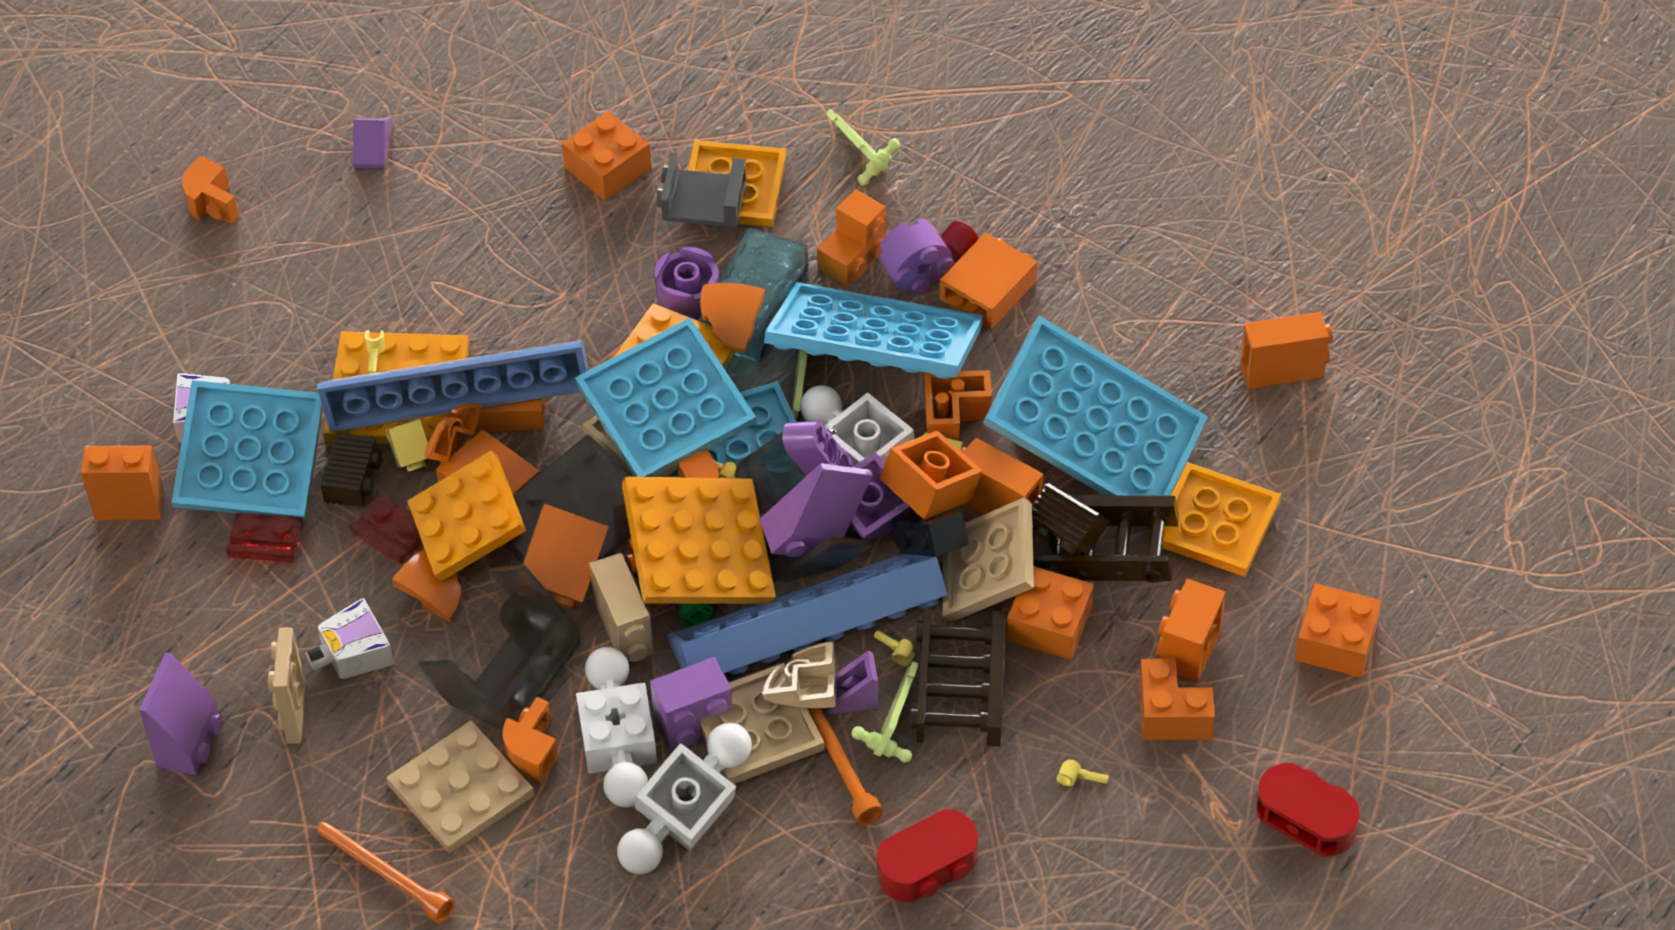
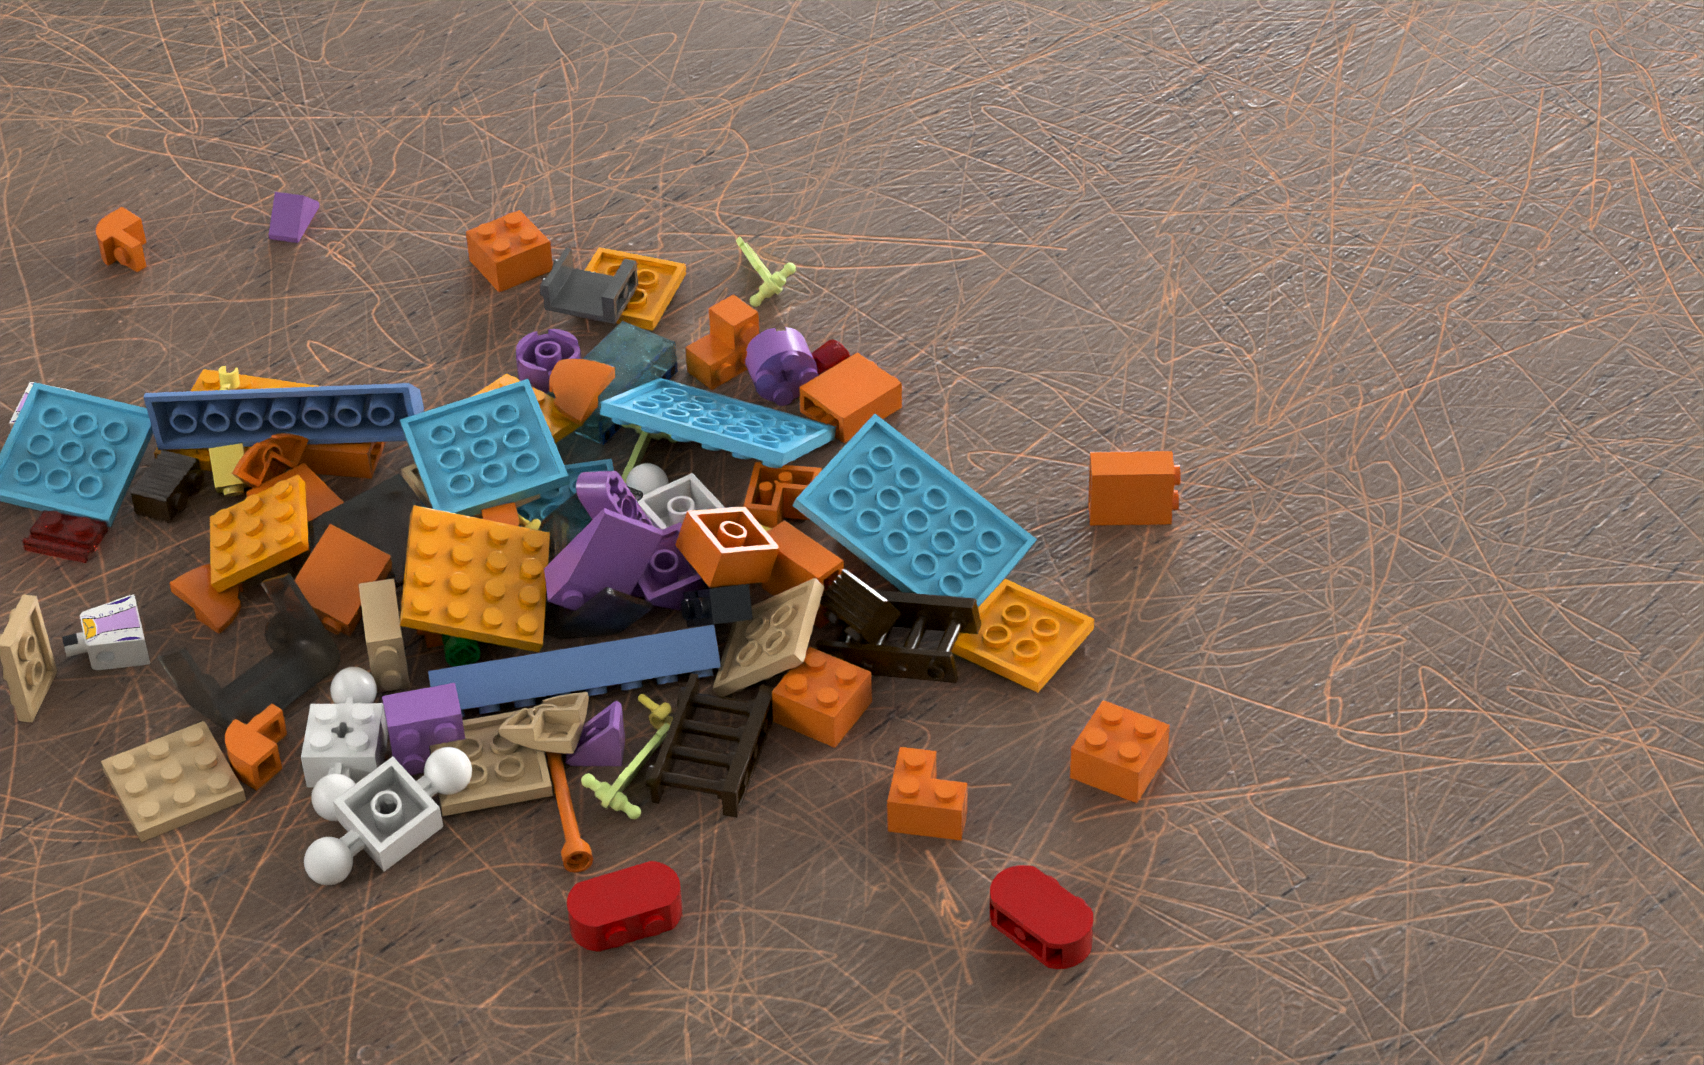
camera: 10 degrees right, 10 degrees down
(388, 528) = (184, 541): clear red plate -> none
(436, 905) = (106, 884): orange piece -> none
(1072, 770) = (802, 847): light yellow hand -> none
(1191, 628) = (963, 727): orange brick -> none

